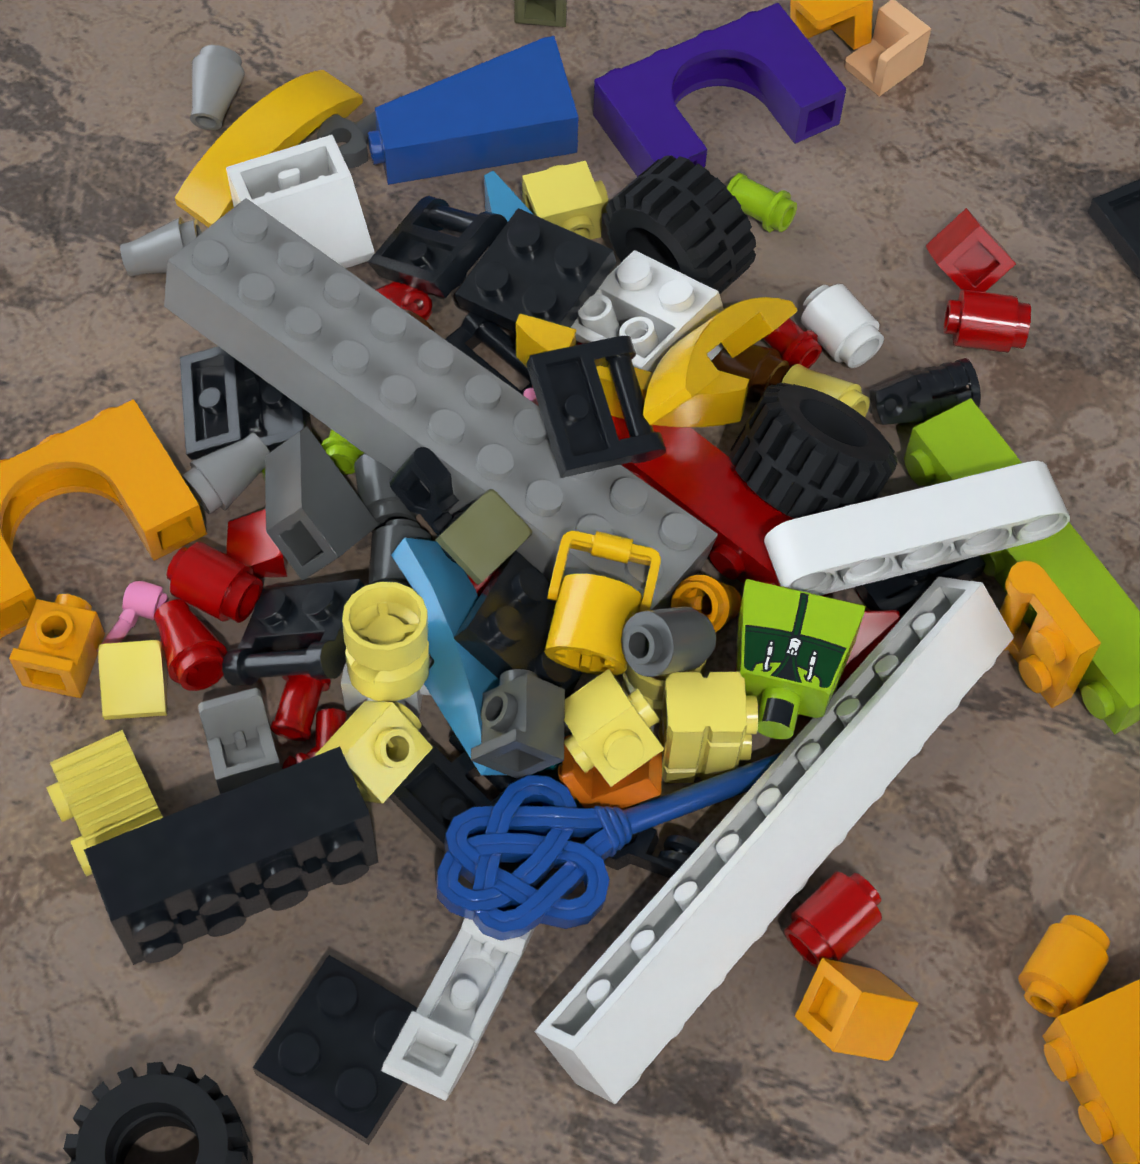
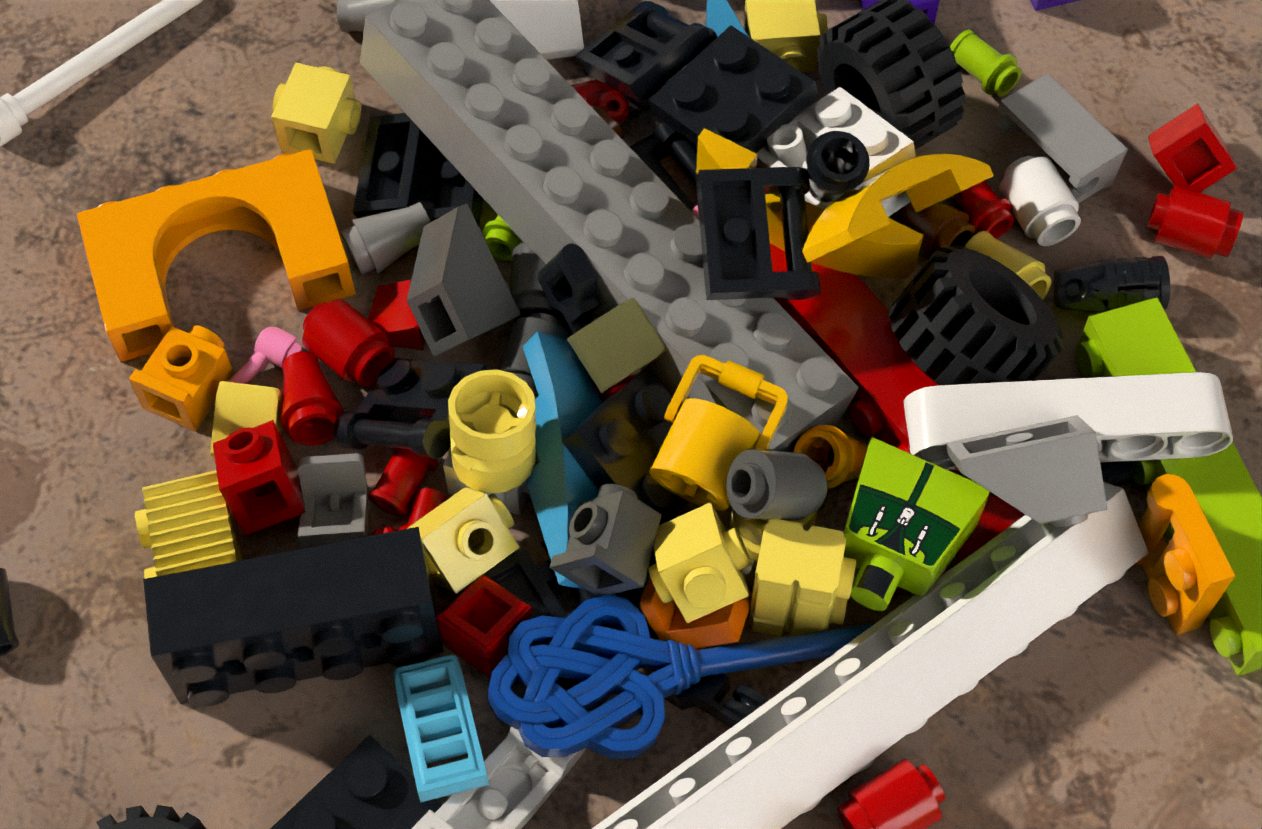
camera: 15 degrees right, 0 degrees up
(125, 361) = (315, 111): none -> light yellow brick
(161, 730) = (258, 477): none -> red brick
(379, 899) = (431, 689): none -> medium azure slope
(414, 827) = (481, 622): none -> red slope
(657, 327) = (836, 165): none -> black cone
(851, 257) = (1065, 133): none -> light grey hinge
(905, 578) = (1038, 468): none -> light grey slope

